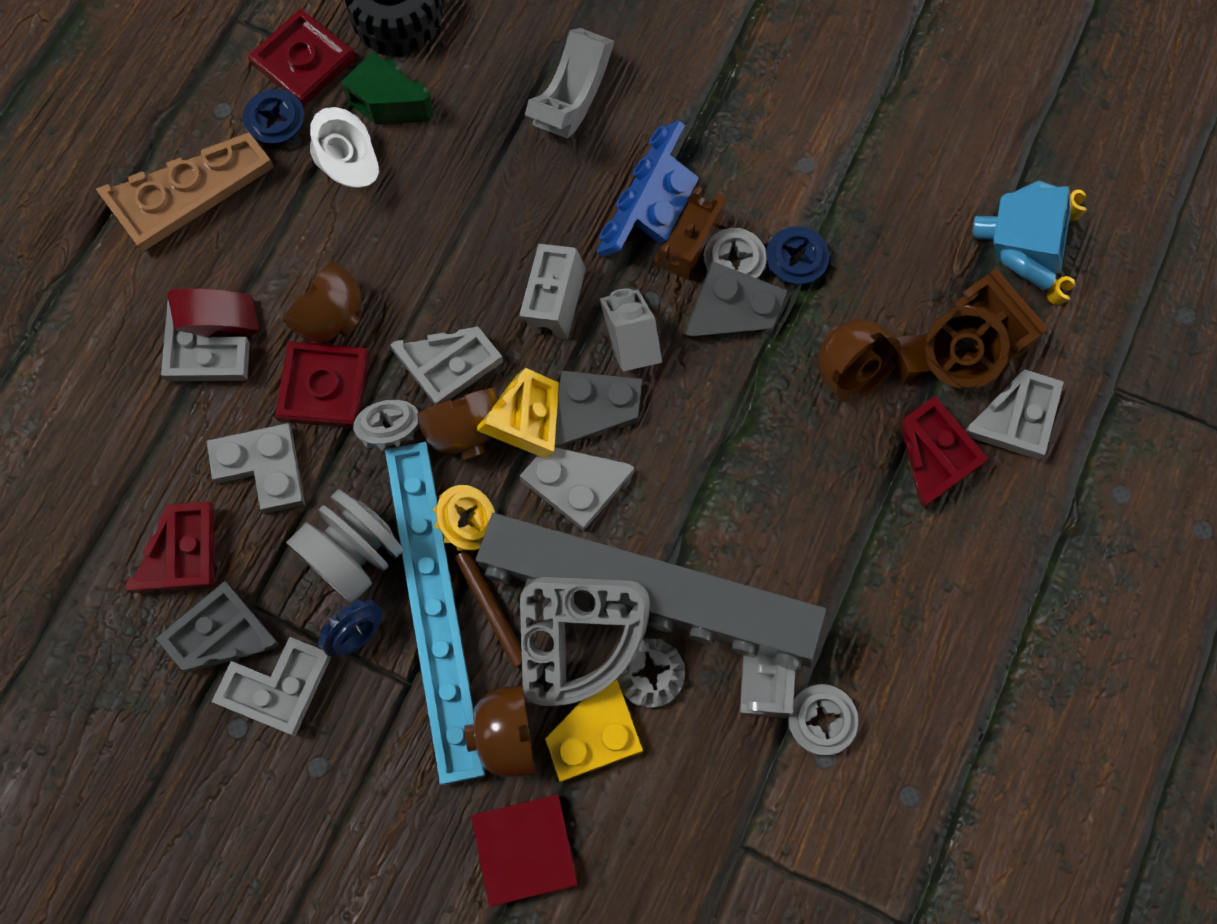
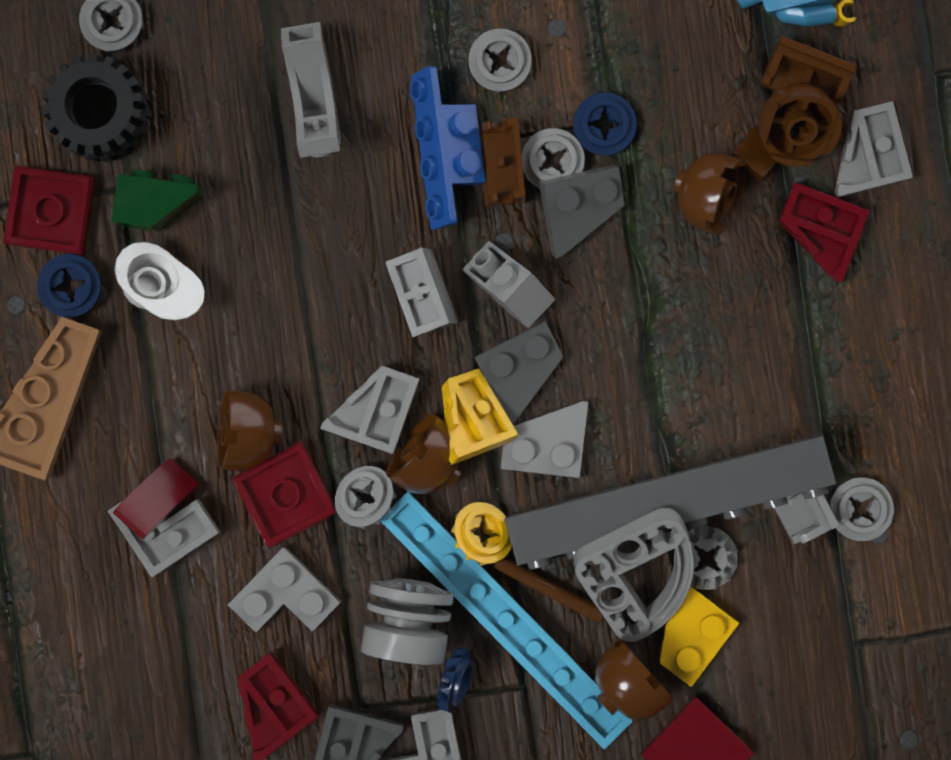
camera: 30 degrees left, 15 degrees up
(747, 144) = (495, 43): none -> light grey gear

